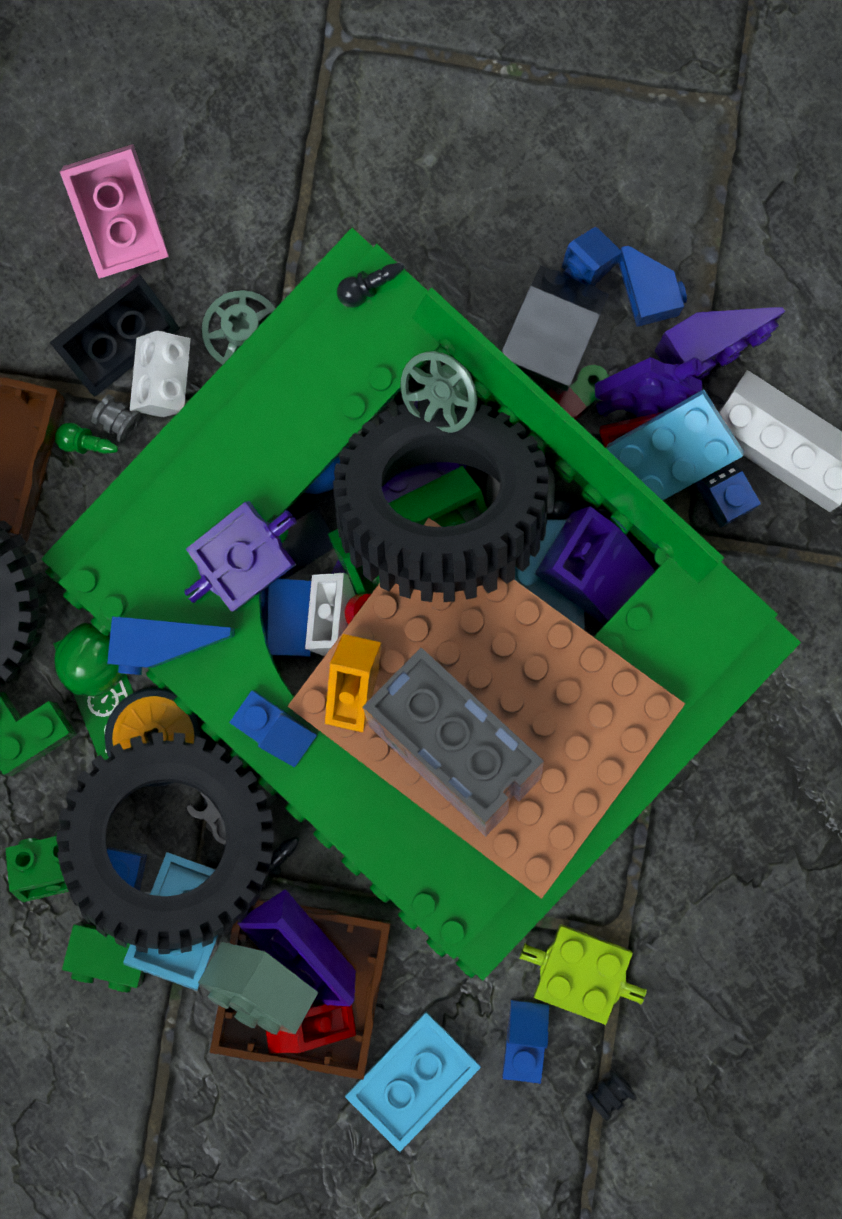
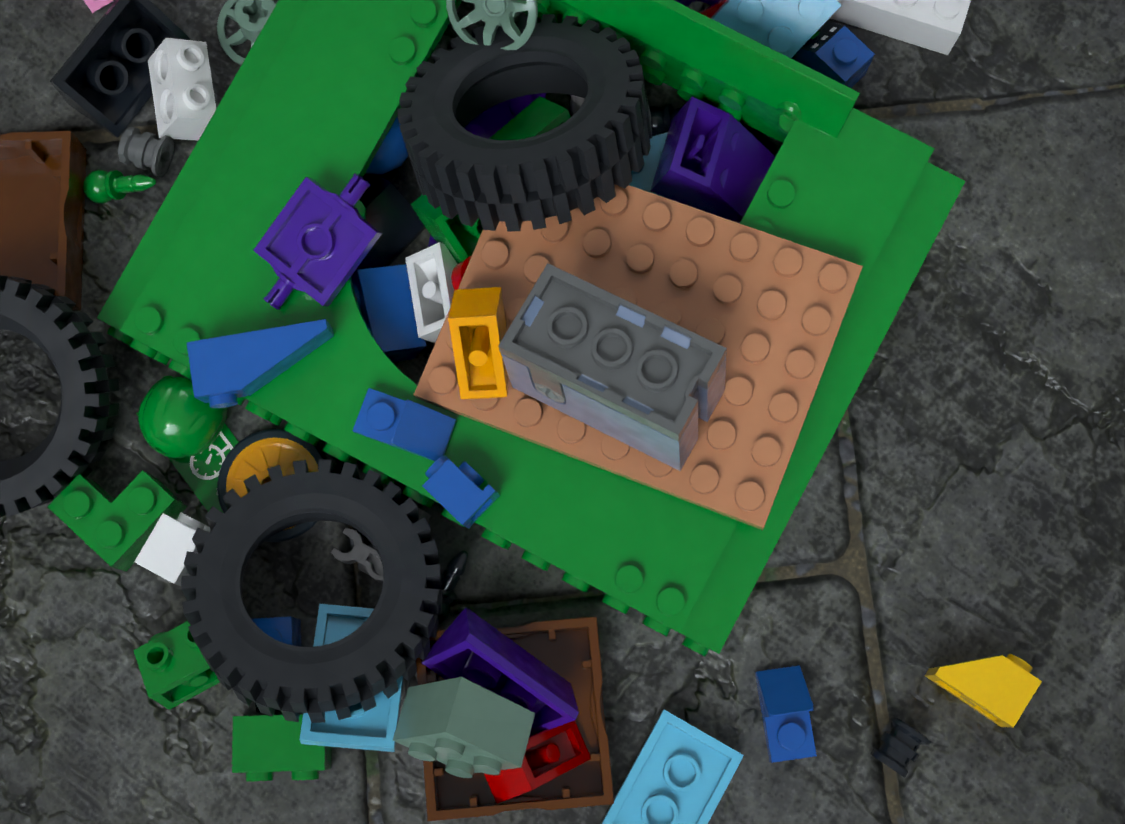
camera: 10 degrees left, 5 degrees down
(59, 774) = (168, 546): none -> white brick
(303, 796) = (459, 490): none -> blue brick
(582, 974) = (828, 619): lime plate -> none
(700, 1064) = (991, 685): none -> yellow slope

